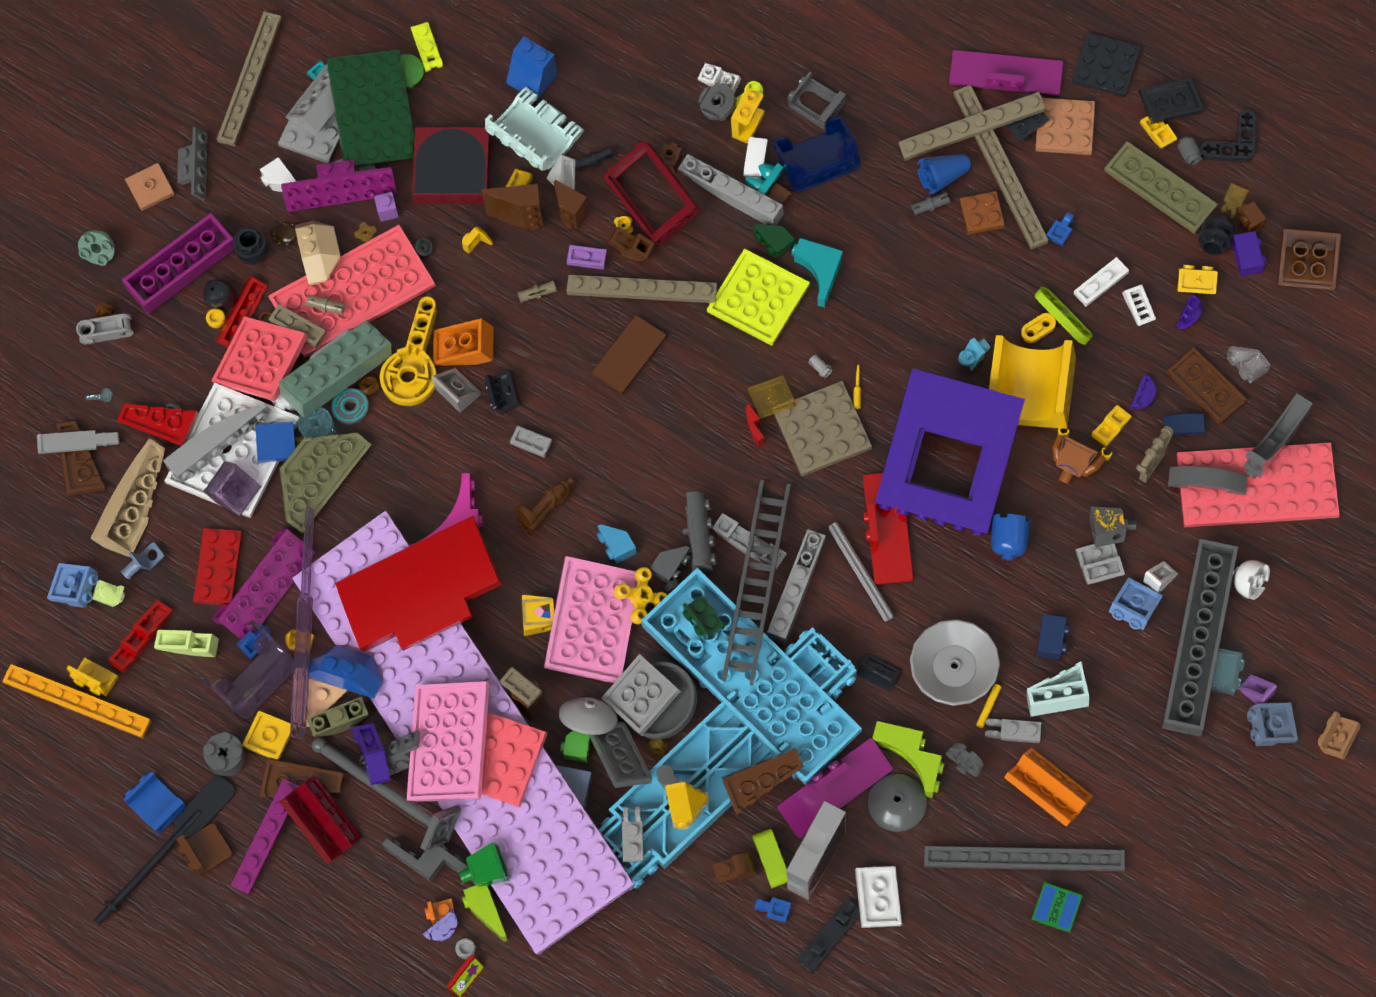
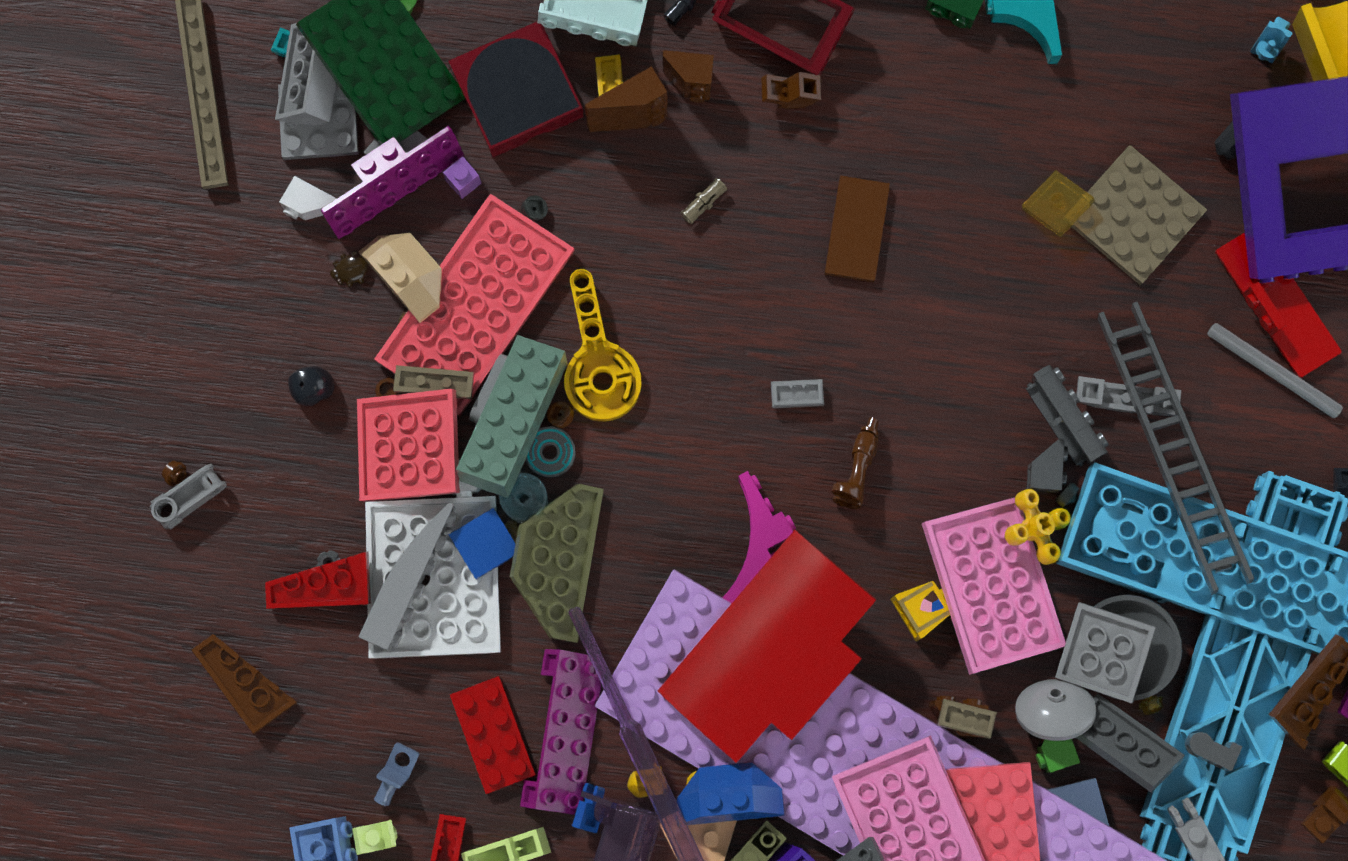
camera: 35 degrees left, 10 degrees up
(74, 441) = (227, 661): light grey piece -> none
(96, 247) = (122, 396): sand green plate -> none
(105, 396) = (234, 581): clear light blue hand -> none
(129, 505) = (340, 716): tan wedge -> none
(149, 186) = (146, 286): nougat plate -> none
(179, 263) = (239, 369): magenta brick -> none
(193, 164) = (188, 233): dark grey bracket -> none
(215, 318) = (320, 417): yellow tile -> none
(232, 488) = (462, 629): clear purple slope -> none
(244, 306) = (348, 387): red slope -> none
(246, 237) = (312, 292): black piece -> none
(325, 304) = (454, 338): dark tan pin -> none
(365, 237) = (457, 227): clear yellow plate -> none
(455, 388) = (670, 369): light grey slope -> none
(463, 344) = (649, 309): orange slope -> none
(471, 239) = (589, 171): yellow plate -> none
(502, 391) = (730, 346): black bracket -> none
(563, 171) = (656, 37): white slope -> none
(586, 257) = (742, 130): medium lavender plate -> none
(618, 543) = (970, 472): dark azure slope -> none
(619, 221) = (765, 62): yellow plate -> none
(642, 288) = (831, 139): dark tan plate -> none
(685, 804) = (1249, 775): yellow wedge -> none
(703, 617) = (1137, 522): dark green bracket -> none
(753, 422) = (1049, 244): red slope -> none
(758, 297) = (975, 86): neon yellow plate -> none
(796, 588) = (1213, 423): light grey slope -> none
(823, 369) = (1094, 138): light grey pin -> none
(857, 391) = (1151, 147): yellow piece -> none

